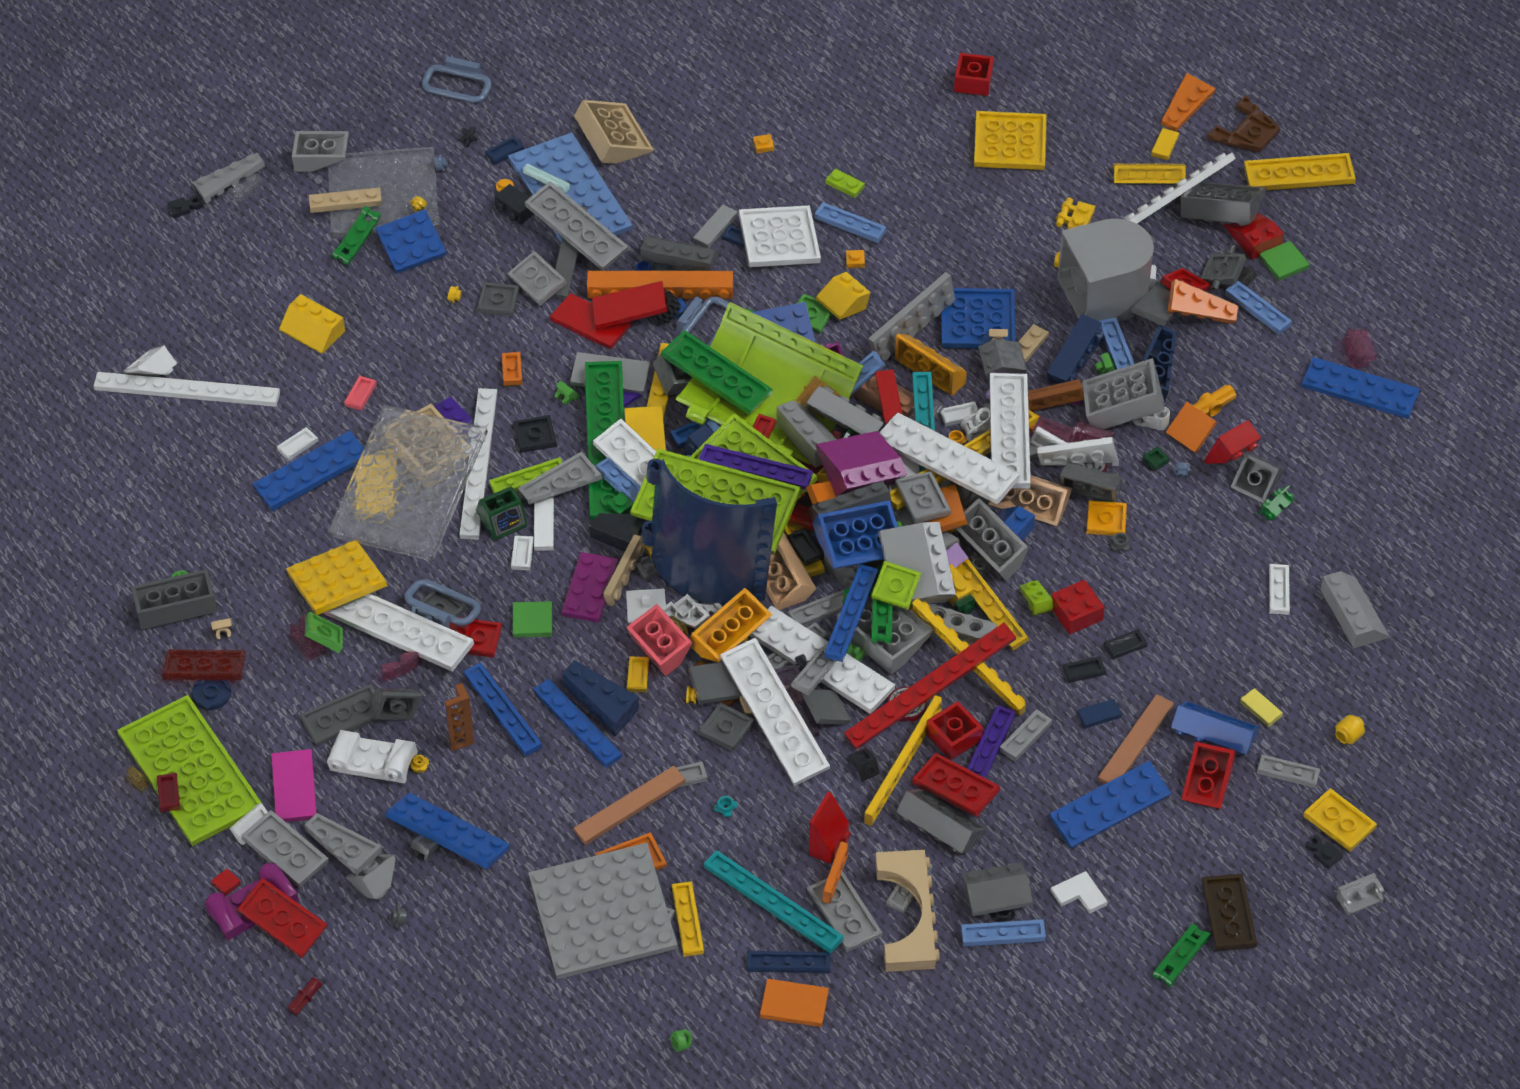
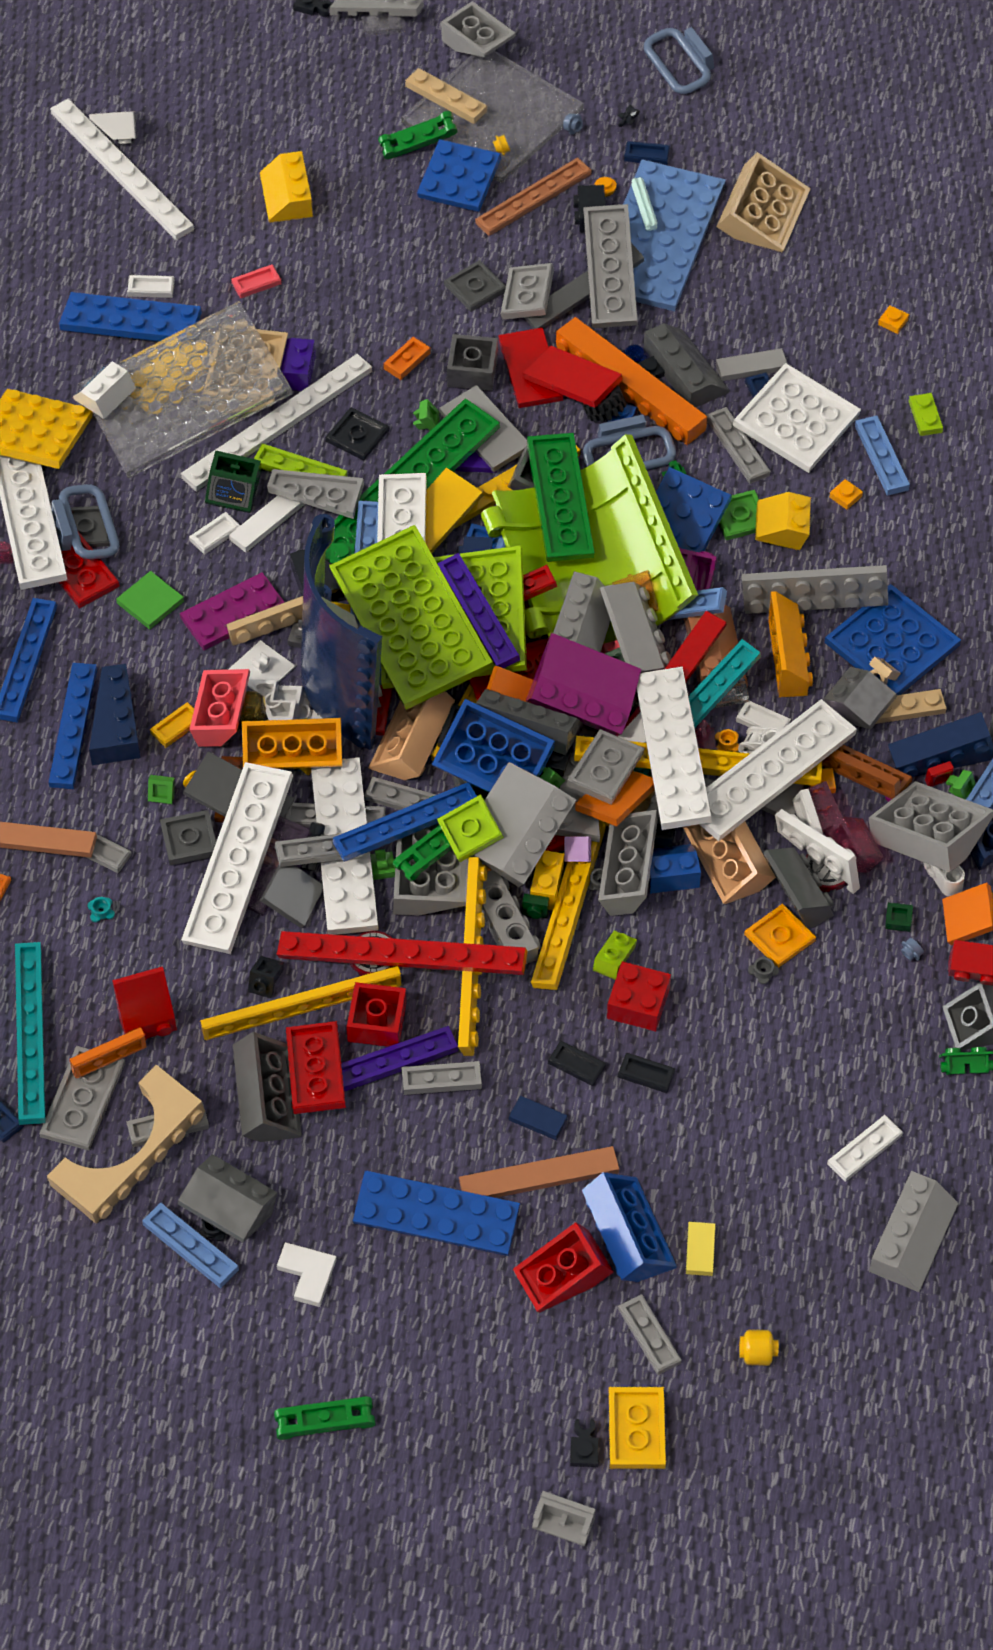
camera: 45 degrees right, 5 degrees up
(358, 518) = (106, 390): none -> white slope
(454, 294) = (440, 252): yellow plate -> none
(468, 223) = (533, 196): none -> nougat tile
(558, 341) = (472, 362): none -> flat silver brick
(678, 714) = (161, 789): none -> bright green tile
(764, 277) = (738, 445): none -> light grey tile
(1088, 368) = (939, 774): none -> red tile
(1229, 912) = (418, 1418): dark brown plate -> none

